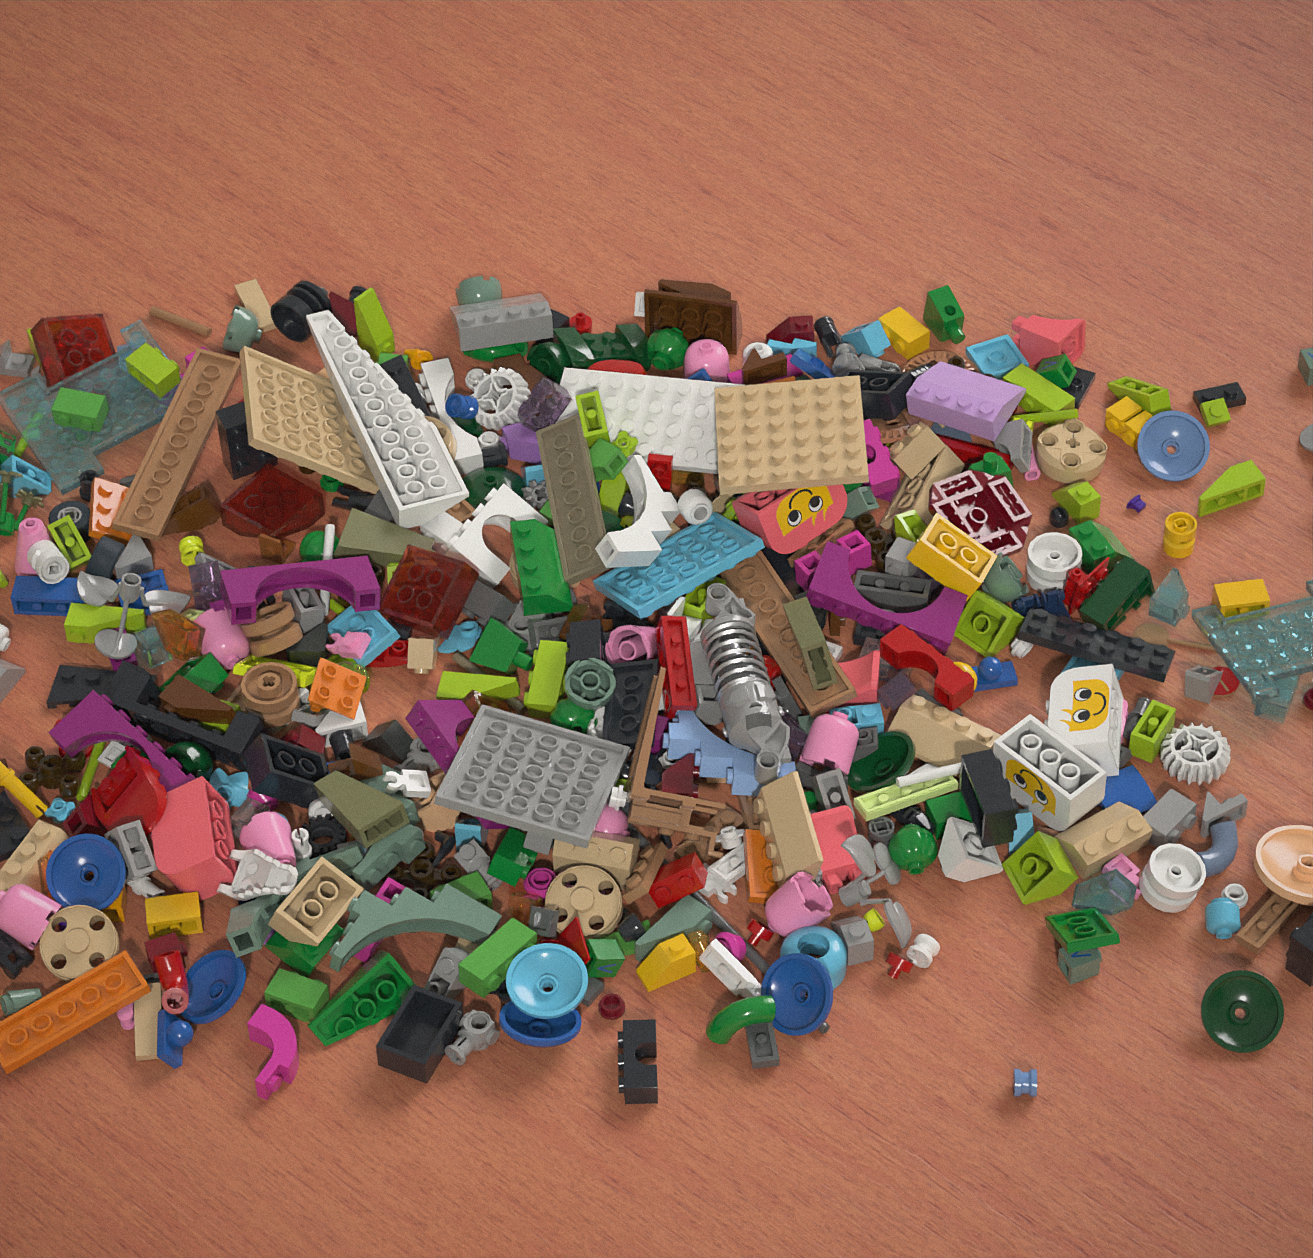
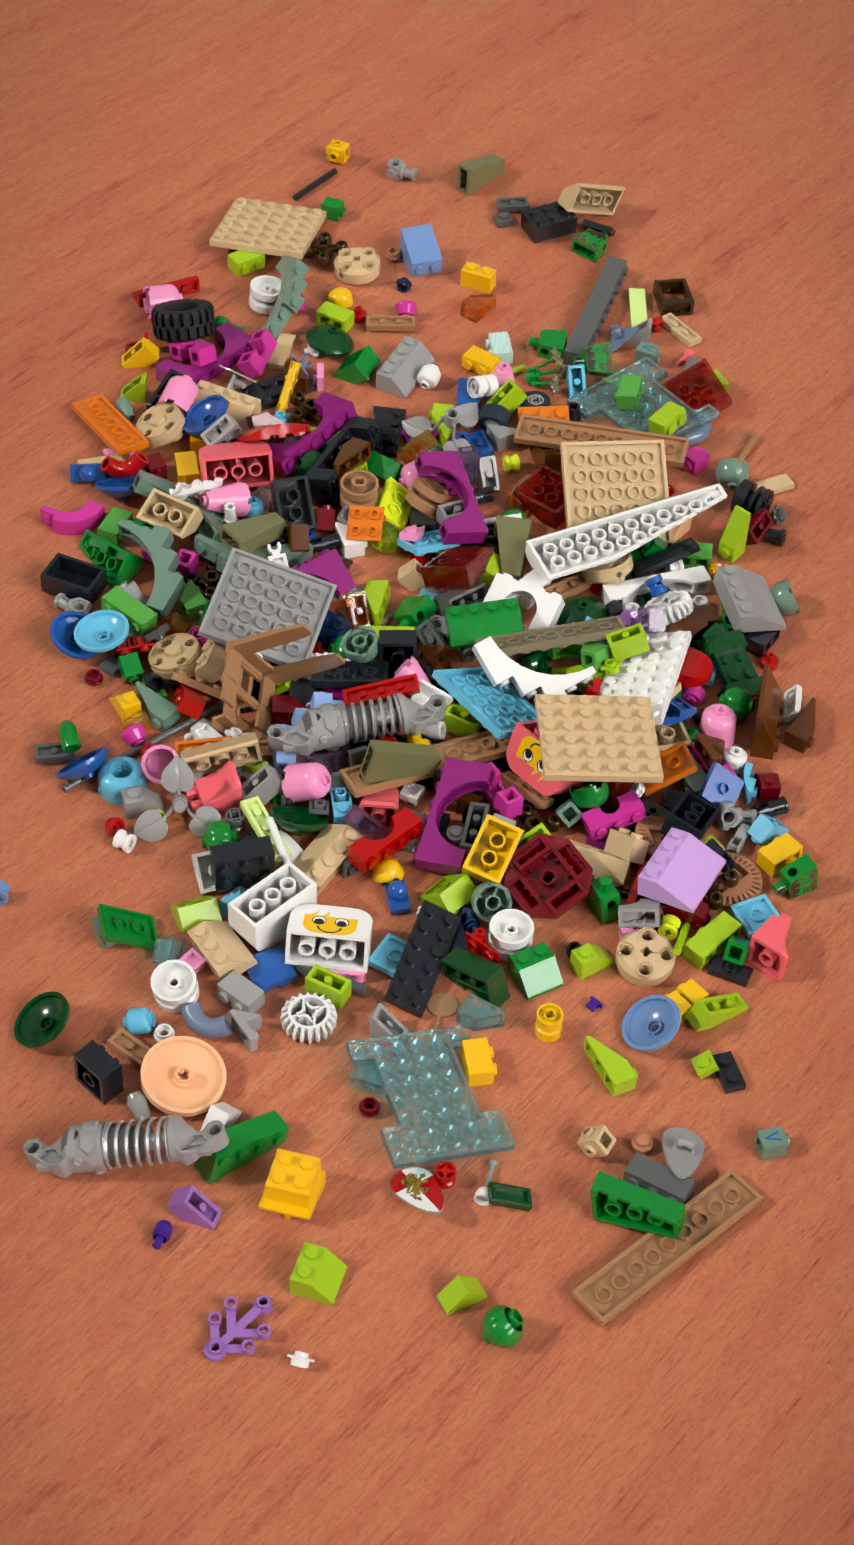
camera: 85 degrees right, 0 degrees up
(639, 1079) = (29, 686): black arch -> none
(730, 971) = (108, 736): white hinge -> none

